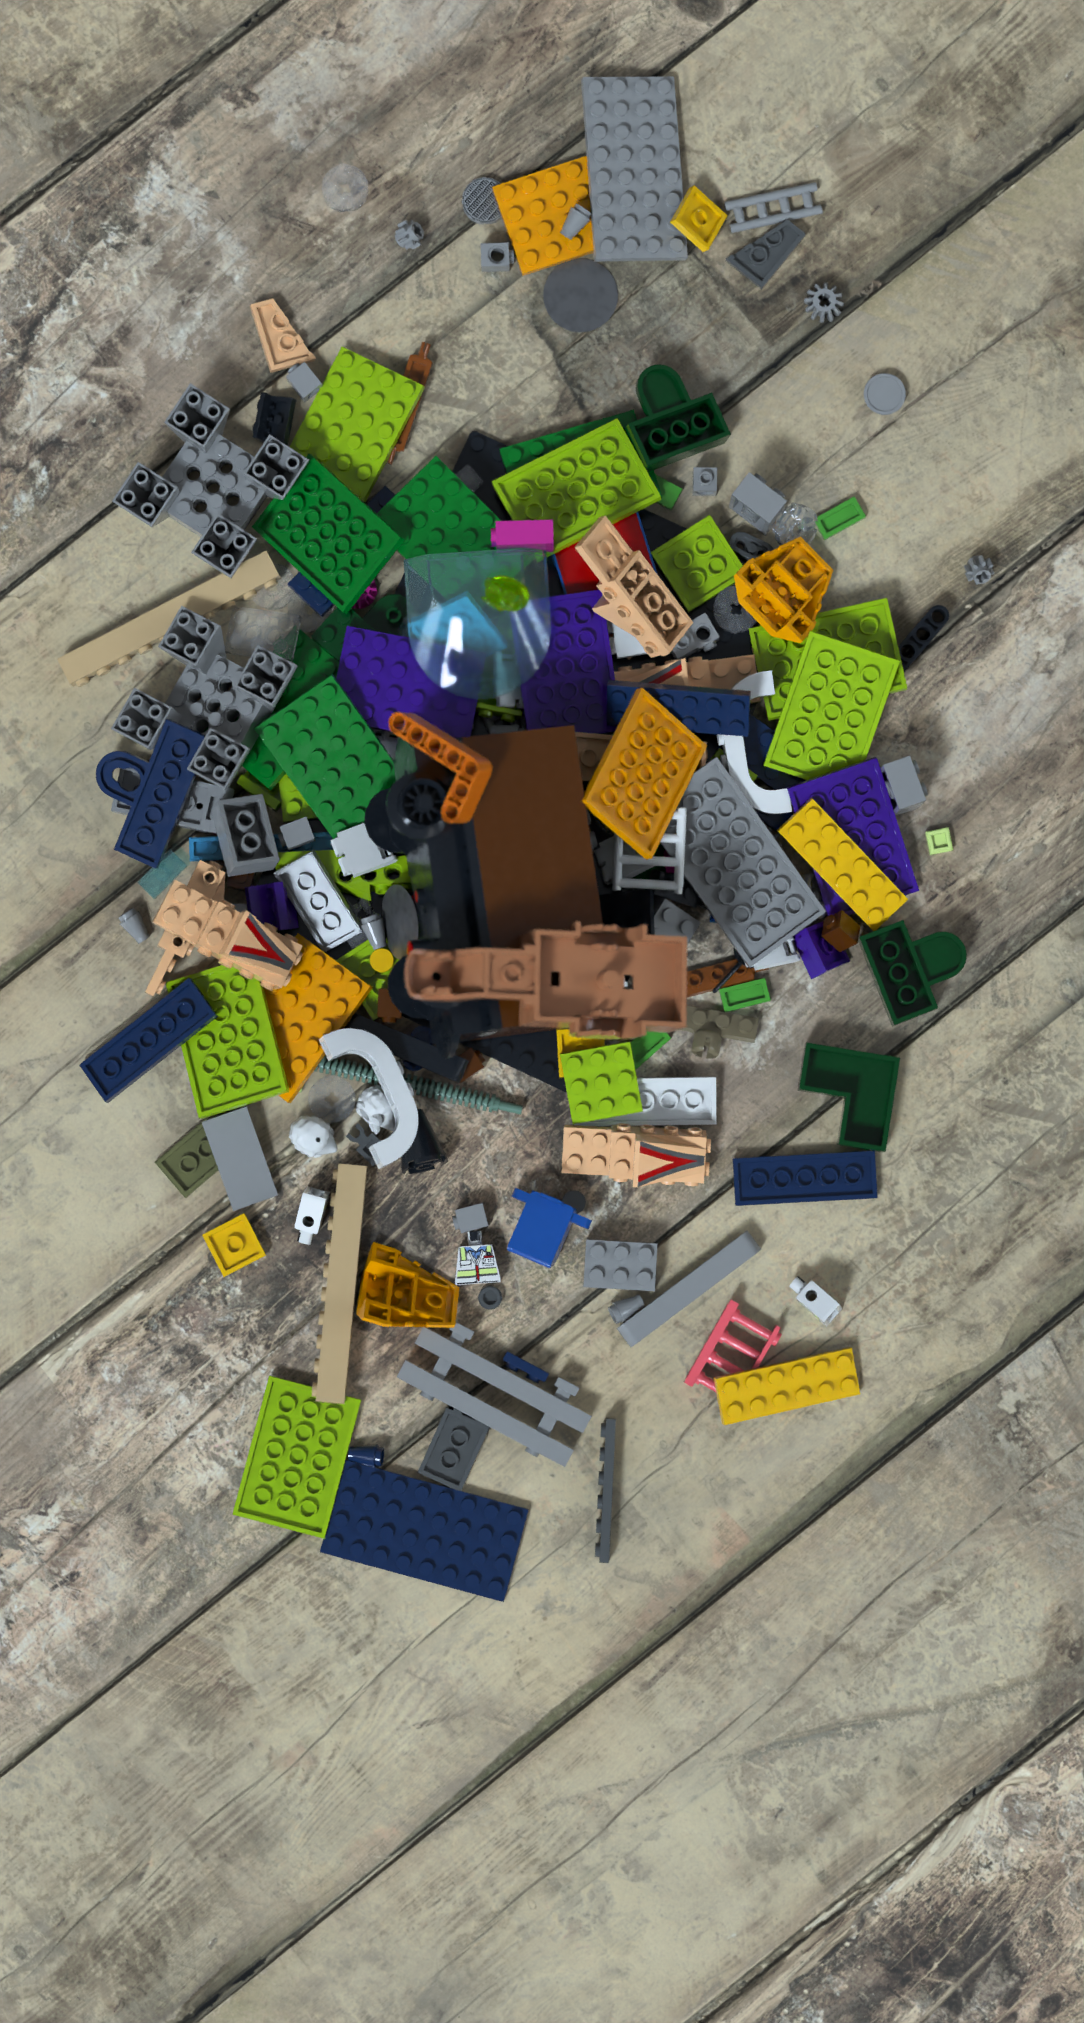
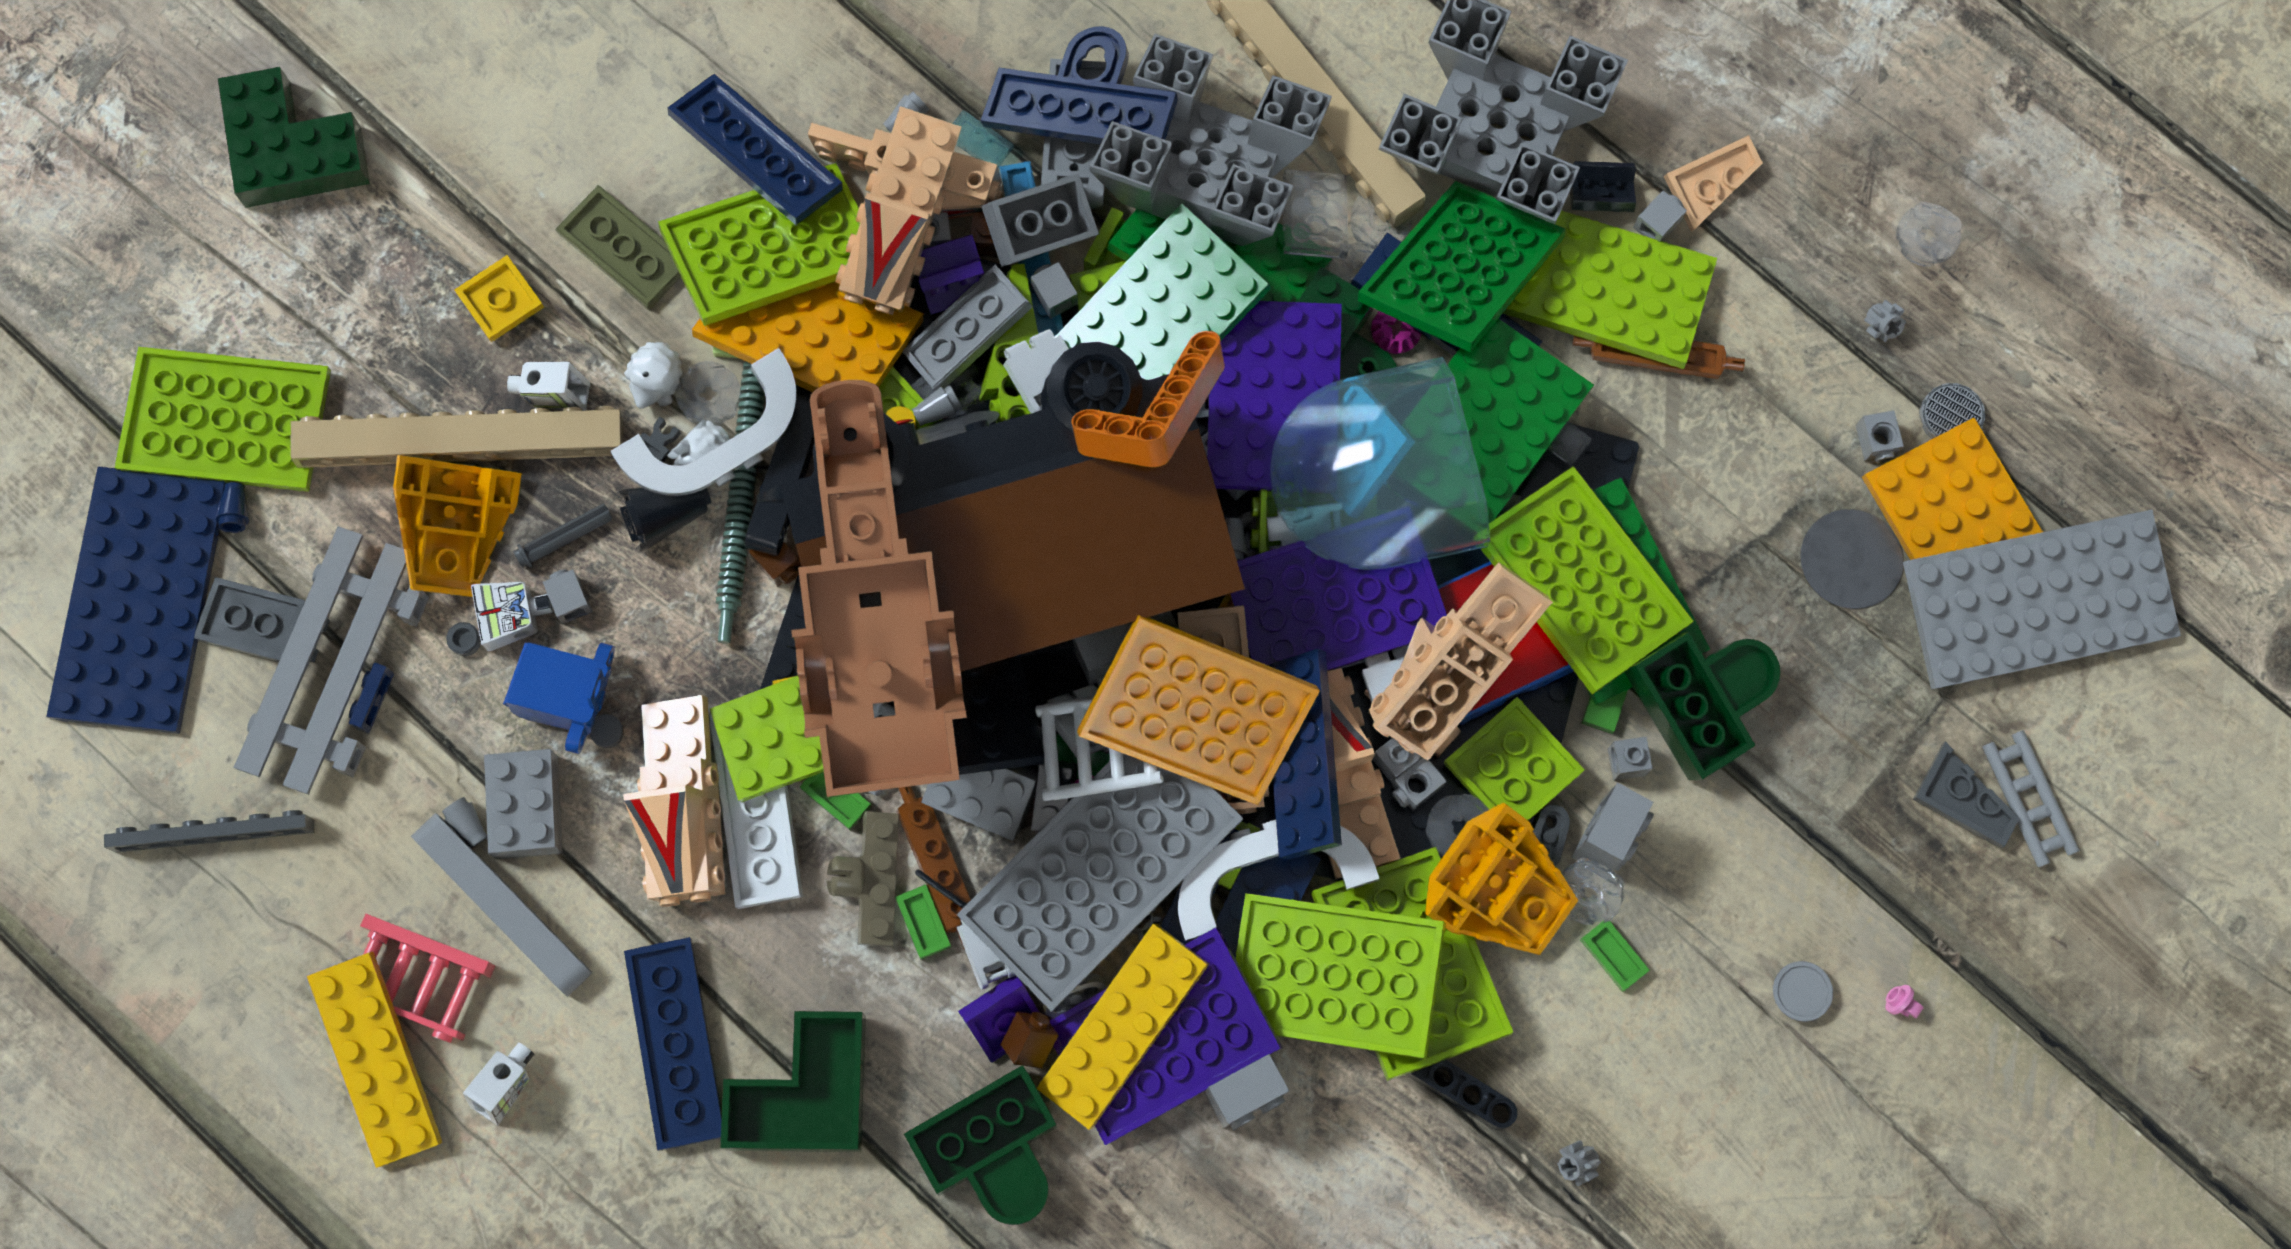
camera: 80 degrees right, 10 degrees down
(96, 1400) = (280, 157): none -> dark green piece
(239, 1158) = (614, 287): light grey tile -> none
(424, 1218) = (562, 535): none -> dark grey axle
(505, 593) = (1418, 487): clear neon green hat -> none
(523, 534) = (1506, 505): dark pink brick -> none
(575, 221) = (1952, 528): light grey cone -> none
(698, 218) = (1993, 694): yellow plate -> none
(826, 311) = (1920, 899): light grey gear -> none
(900, 328) = (1901, 1001): none -> bright pink plate
(939, 841) = (1181, 1165): yellowish green tile -> none

